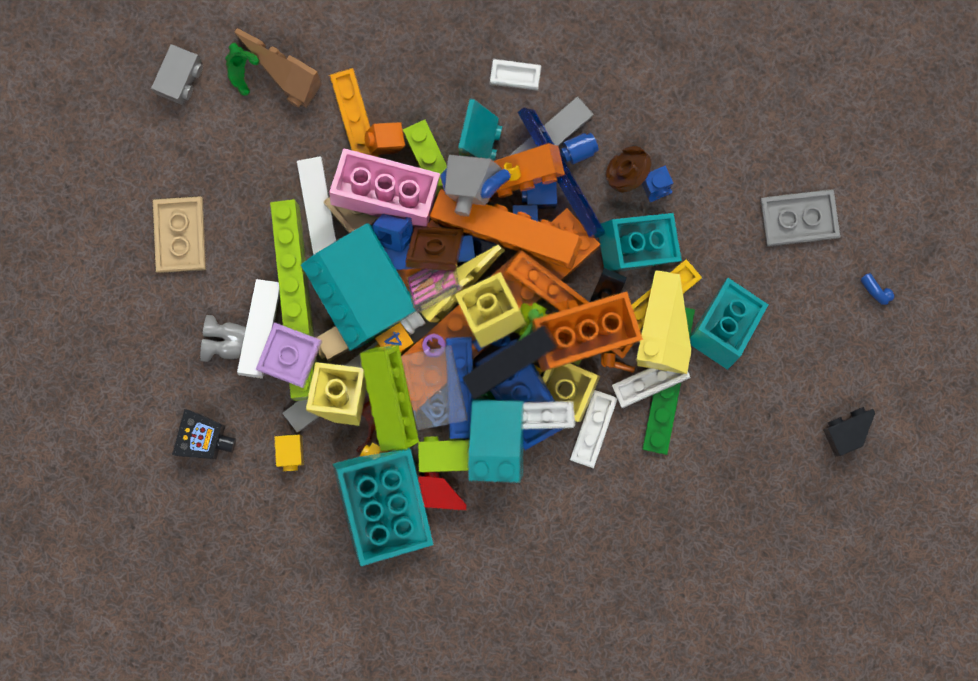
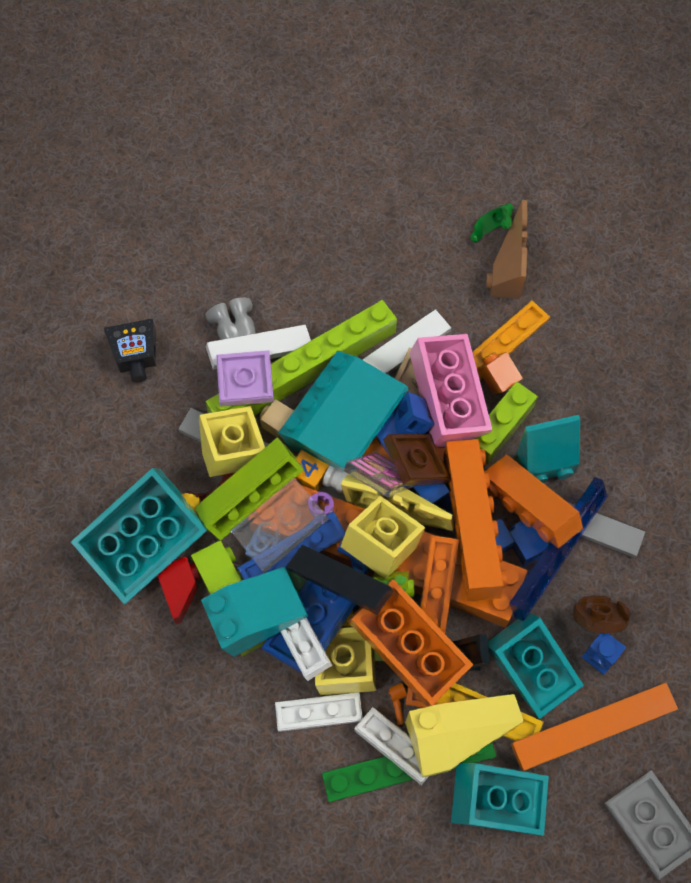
camera: 65 degrees right, 15 degrees down
(177, 75) = (456, 175): light grey brick -> none
(179, 234) = (313, 245): tan tile -> none
(289, 452) = (155, 430): yellow brick -> none
(474, 180) = (502, 459): light grey torso -> none
(515, 74) = (631, 464): white tile -> none
(579, 148) = (594, 558): blue brick -> none
(709, 222) = (593, 726): none -> orange tile

